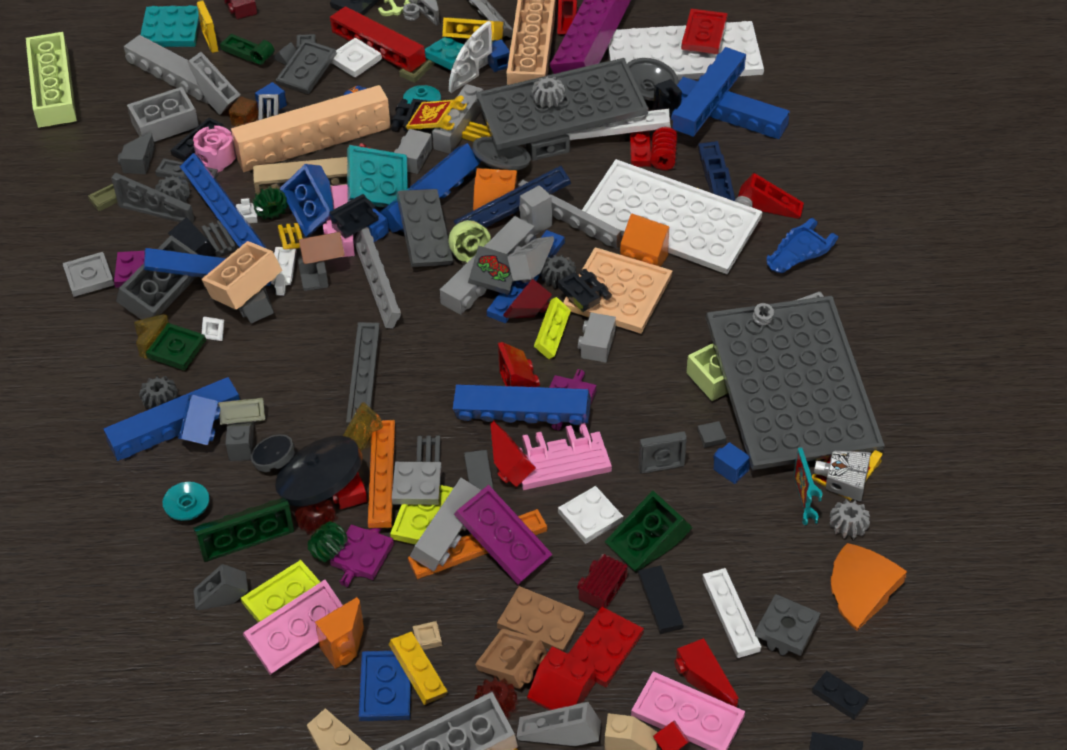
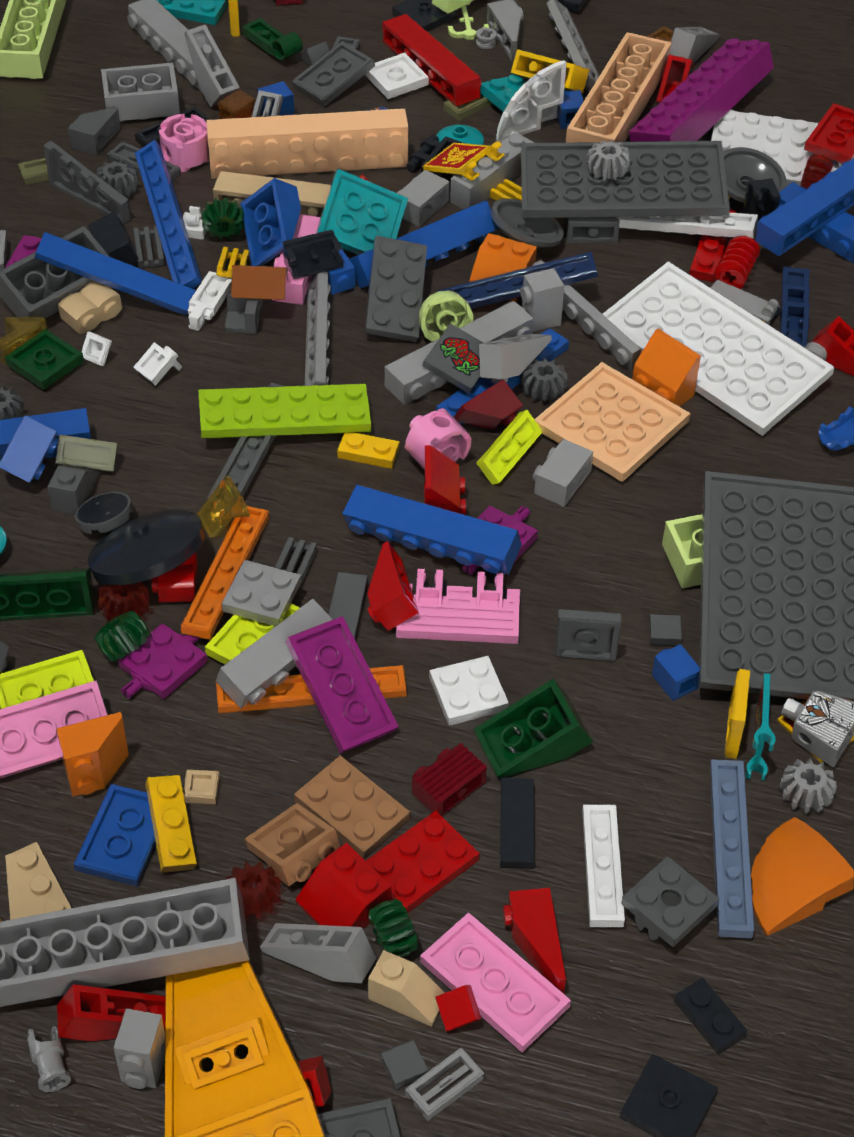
camera: 15 degrees right, 0 degrees up
(191, 299) = (89, 306): none -> tan brick
(242, 275) = (148, 291): light nougat brick -> none
(257, 306) = (158, 326): dark grey slope -> none
(264, 328) = (157, 362): none -> white bracket
(377, 342) = (284, 410): none -> lime plate
(448, 355) = (368, 449): none -> yellow plate
(499, 329) = (439, 431): none -> bright pink brick
(580, 293) = (559, 411): black plate -> none
(606, 696) = (393, 928): none -> dark green gear
(687, 177) = (754, 305): none -> light grey hinge
(697, 65) = (816, 169): none -> clear red gear
(762, 320) = (776, 498): light grey bush -> none
(786, 481) = (737, 714): none -> yellow tile
(813, 576) = (731, 849): none -> sand blue plate

